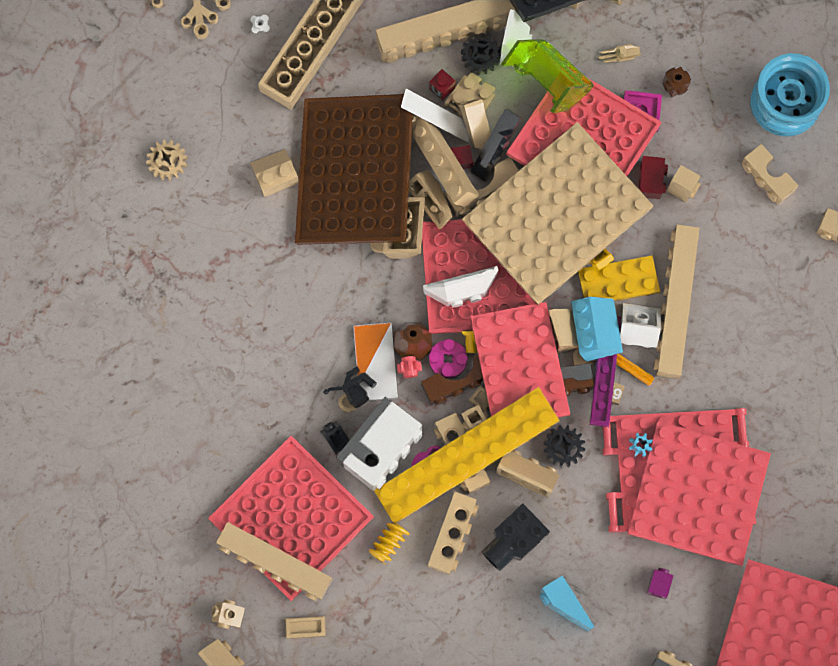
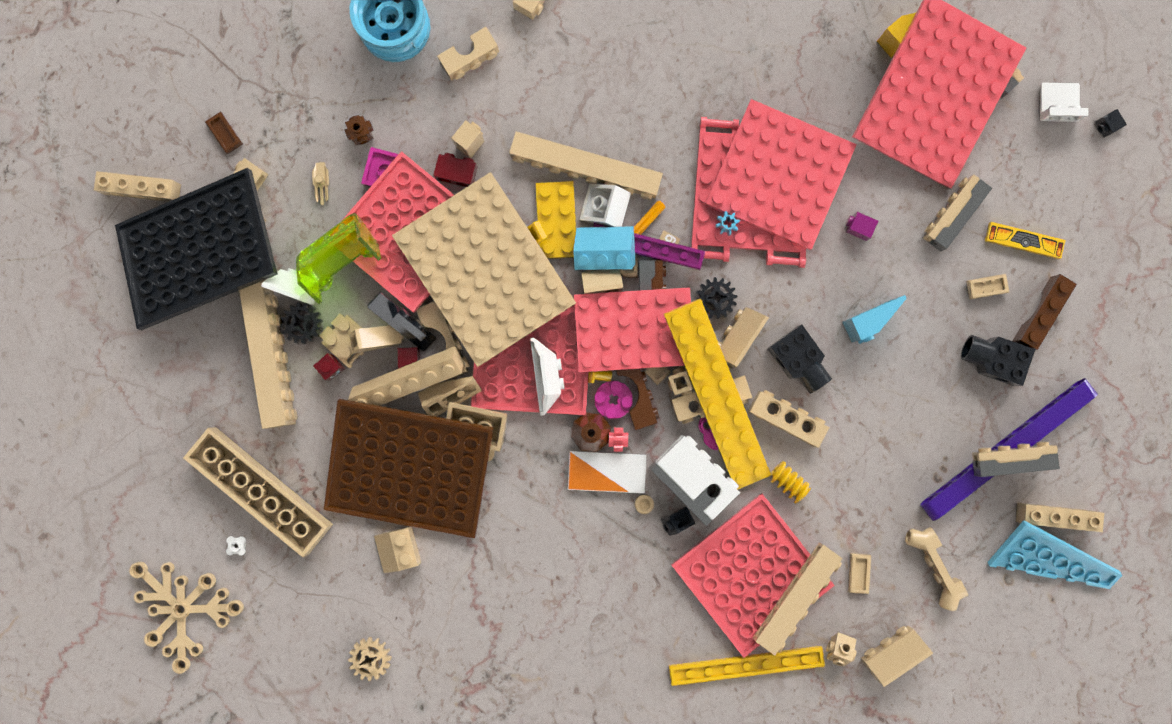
camera: 80 degrees left, 10 degrees up
(199, 525) = (749, 666): none -> yellow tile
(354, 391) = (636, 497): black piece -> none
(435, 114) = (361, 380): white sticker -> none

